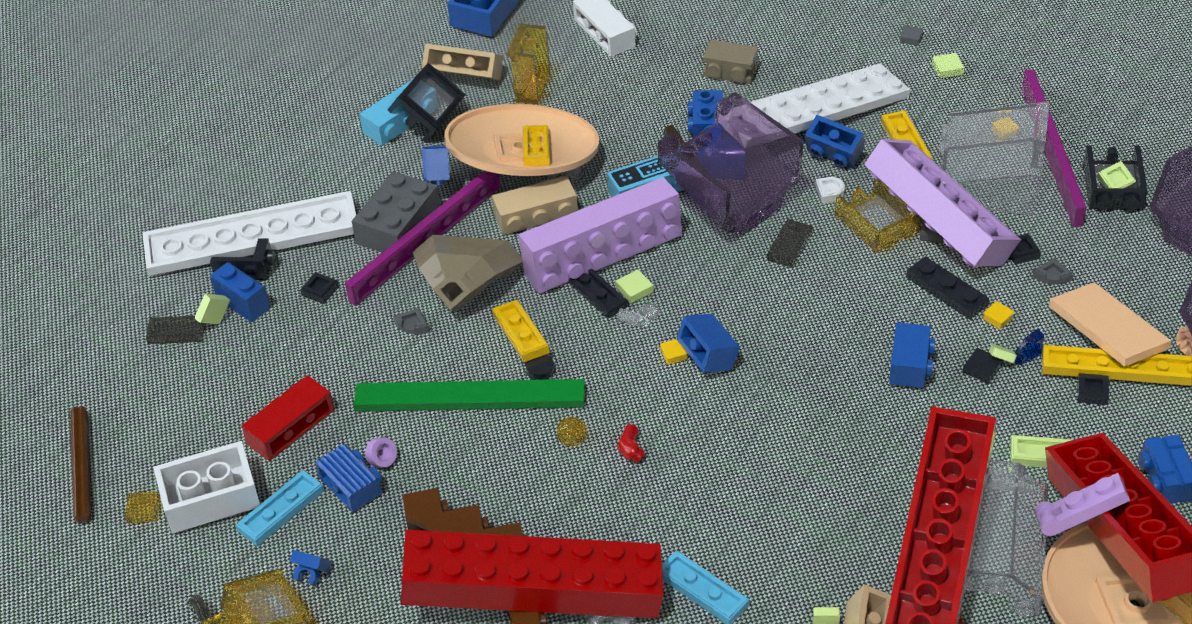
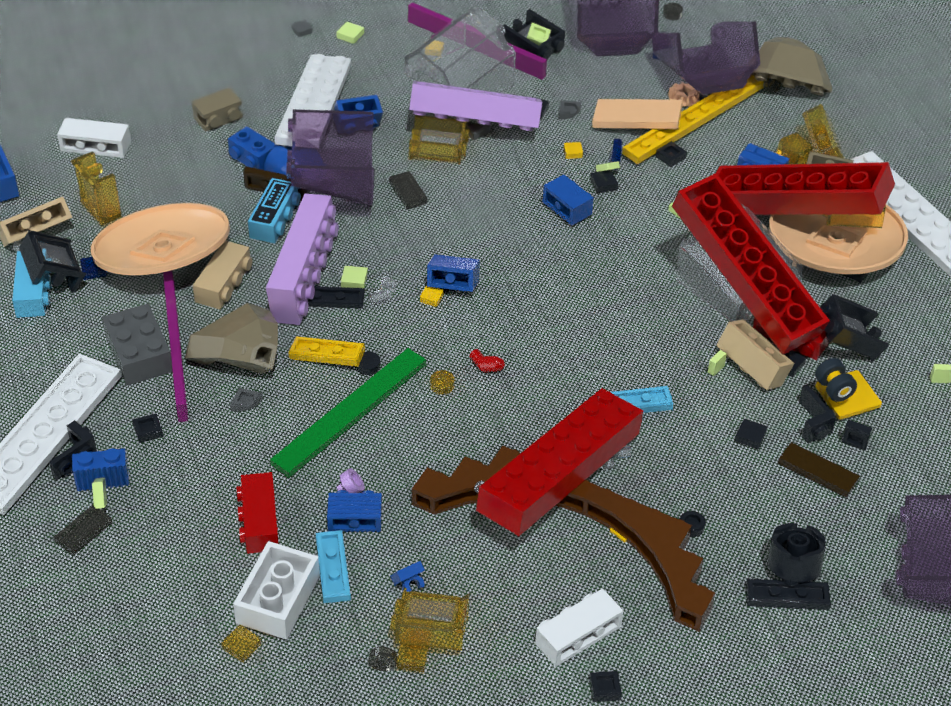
camera: 55 degrees left, 0 degrees up
(80, 465) = (153, 657): reddish brown axle -> none
(436, 164) = (124, 292): brick -> none
(536, 147) = (172, 240): yellow tile -> none
(829, 188) = (385, 145): white tile -> none
(900, 127) = (384, 88): yellow tile -> none
(947, 288) = (527, 154): black plate -> none
(1081, 505) = (784, 196): lavender plate -> none

